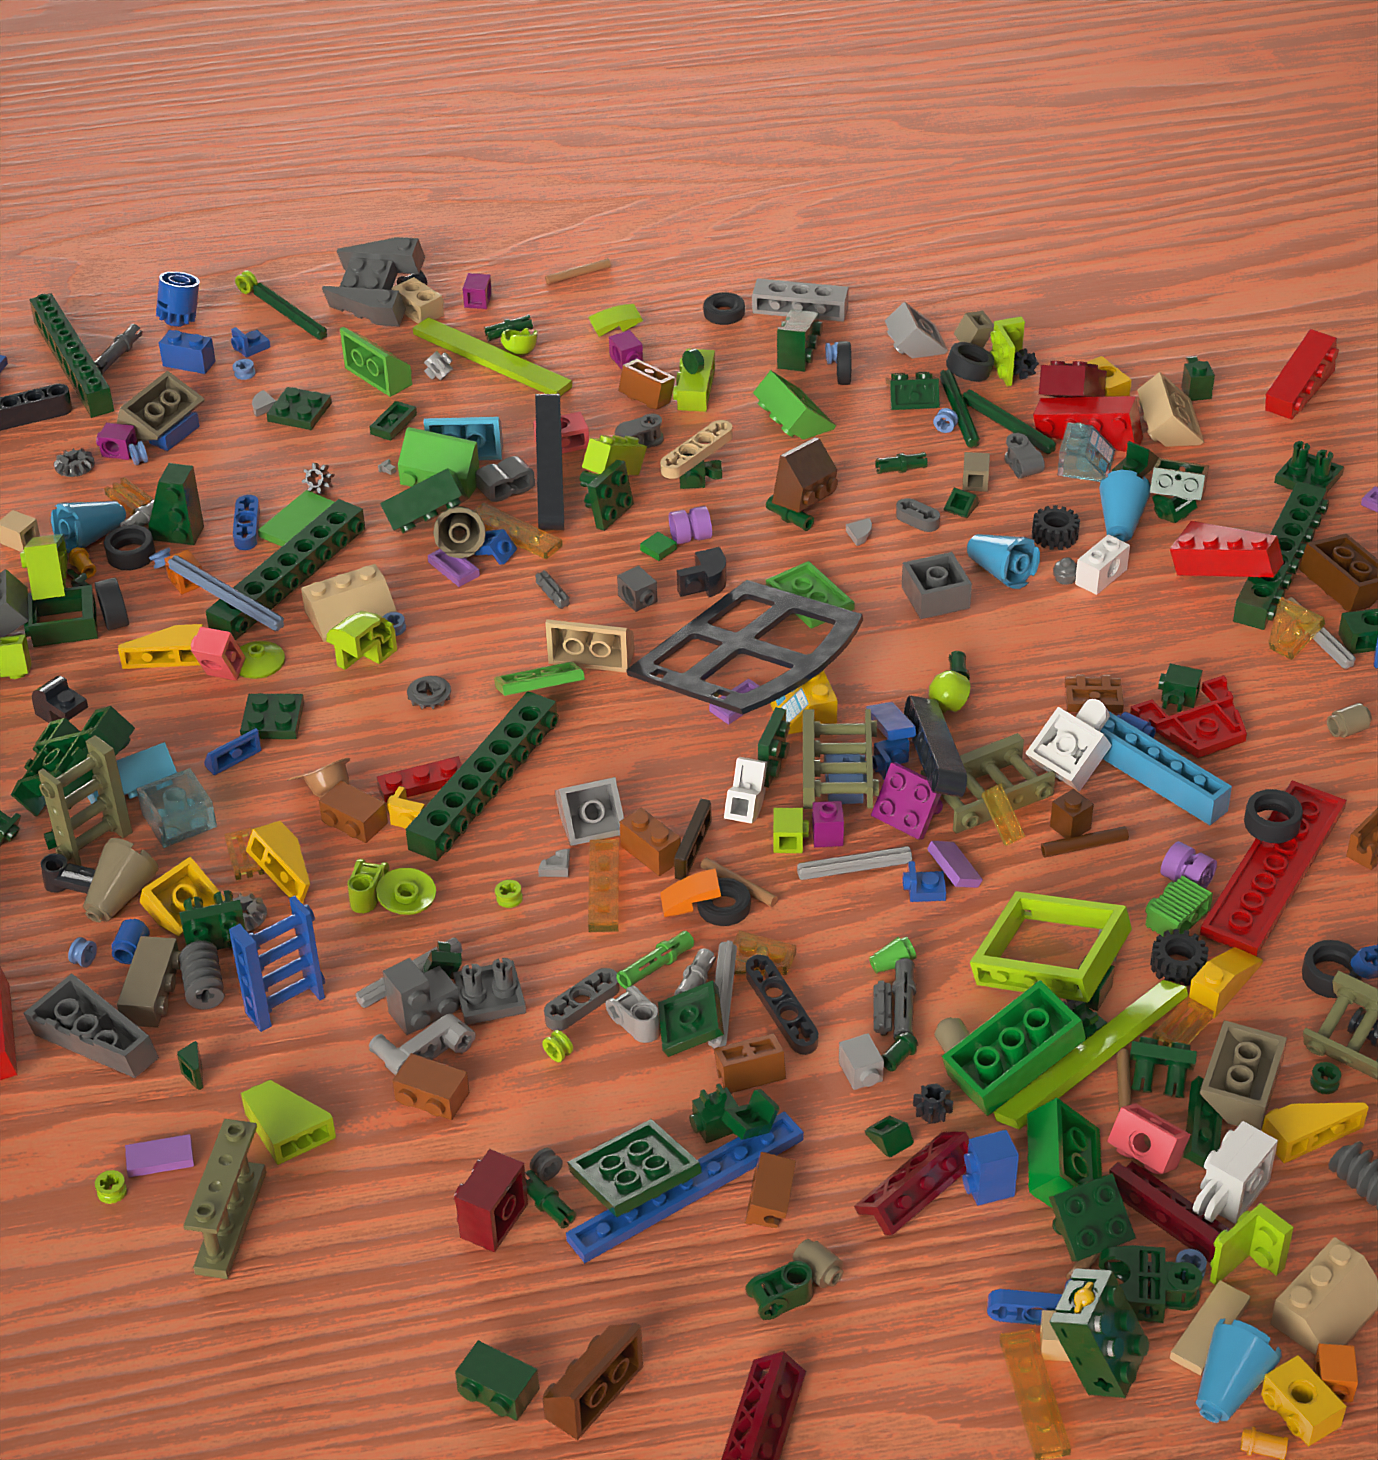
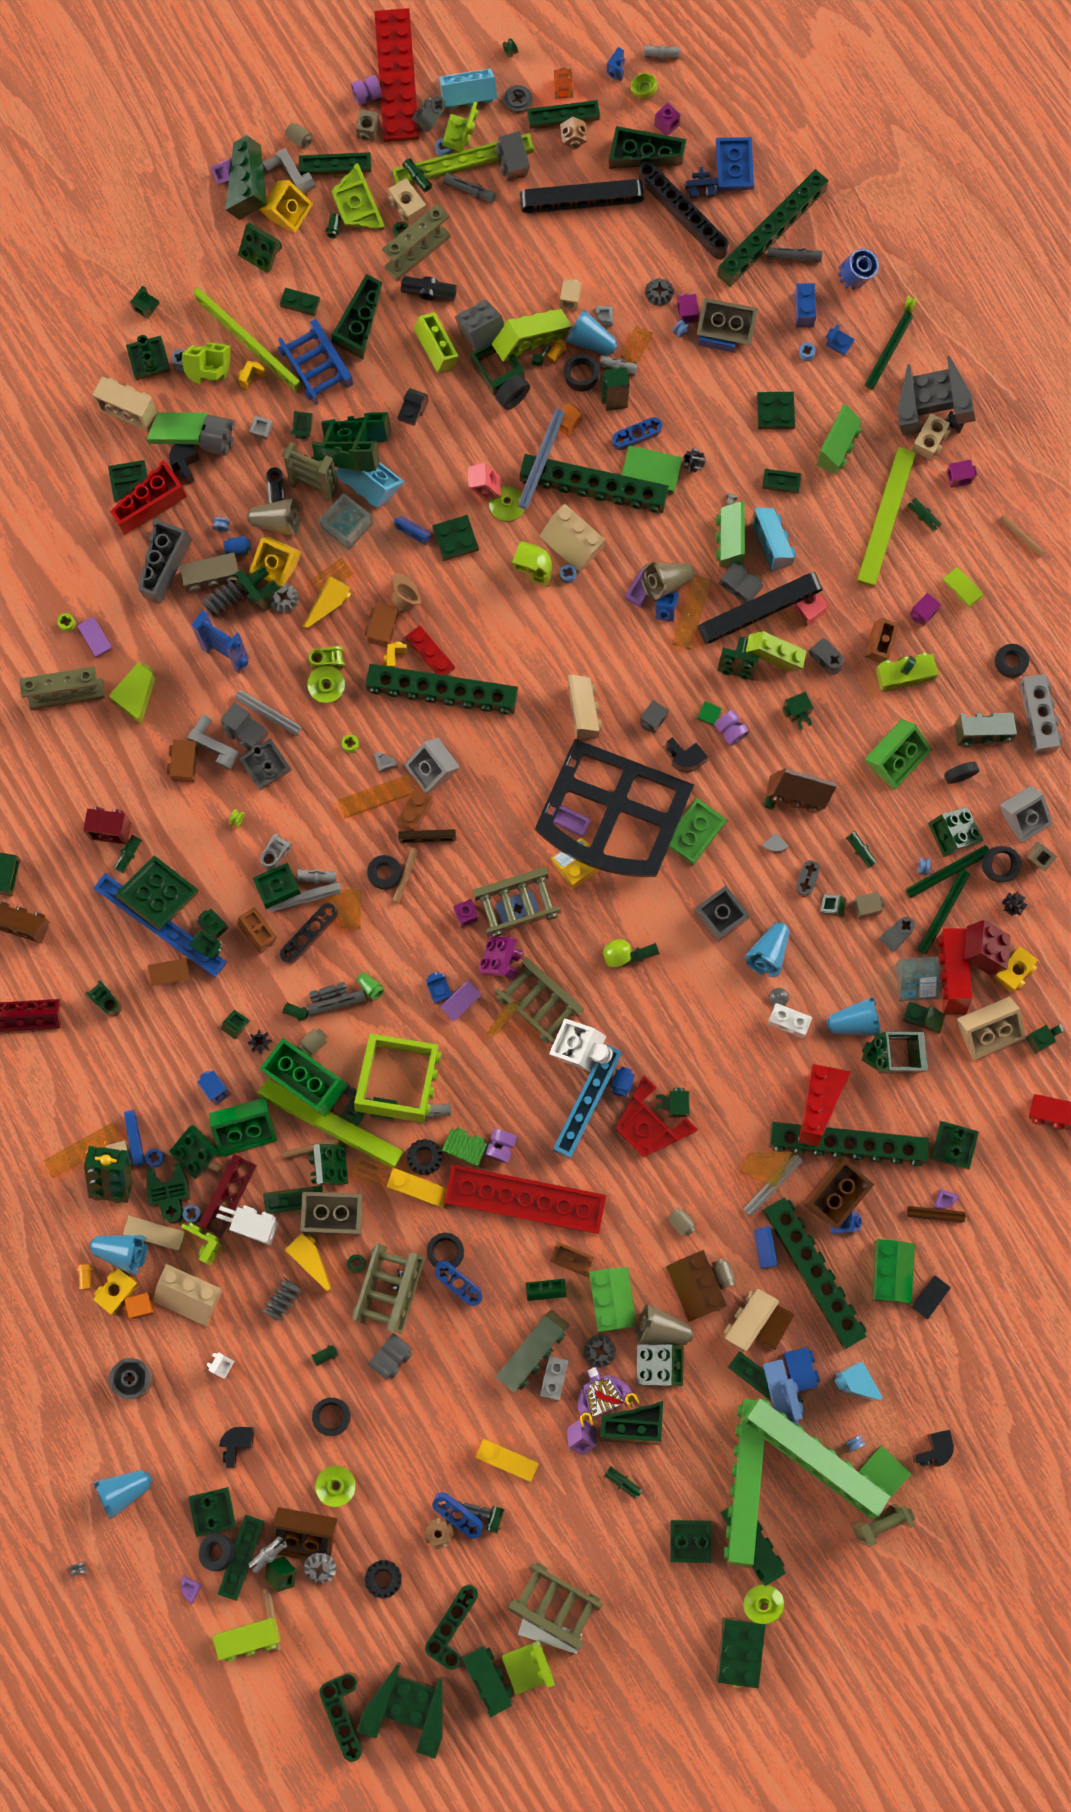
camera: 70 degrees right, 35 degrees up
(159, 557) = (577, 398): medium blue bush -> none
(161, 649) = (492, 447): yellow slope -> none
(191, 1064) = (157, 626): dark green slope -> none
(262, 403) = (771, 382): light grey tile -> none
(424, 501) = (686, 545): dark green wedge -> none
(437, 686) = (509, 615): dark grey gear -> none
(438, 365) = (854, 485): light grey gear -> none
(443, 957) = (273, 729): dark green tile -> none
(519, 342) = (907, 528): lime hair -> none
(539, 678) = (538, 688): bright green tile -> none
(546, 1164) = (150, 844): dark grey bush -> none
(552, 589) = (638, 661): dark grey axle -> none
(575, 1010) = (265, 816): dark grey beam -> none
(677, 464) = (806, 706): tan beam -> none
(678, 944) = (319, 849): bright green pin -> none
(698, 887) = (377, 851): orange slope -> none
(748, 790) = (473, 855): white brick -> none
(773, 744) = (517, 857): dark green plate -> none
(789, 830) = (455, 891): lime brick -> none
(824, 1264) = (127, 1013): dark tan brick -> none
(831, 352) = (980, 759): medium blue bush -> none
(854, 863) = (443, 939): light grey axle -> none
(861, 1061) = (277, 993): light grey brick -> none
(889, 752) = (546, 932): blue bracket -> none
(892, 721) = (572, 923): tile -> none
(917, 1182) = (201, 1051): dark red fence -> none
(936, 747) = (543, 959): black beam -> none
(1006, 340) = (1028, 881): lime bracket -> none
(1055, 527) = (824, 989): black tyre -> none
(1071, 814) = (525, 1061): reddish brown brick -> none
(1084, 841) = (510, 1076): reddish brown piece -> none
(1102, 688) = (648, 1050): dark orange plate -> none
(1166, 1139) = (267, 1170): coral brick -> none
(1277, 801) = (559, 1174): black tyre -> none

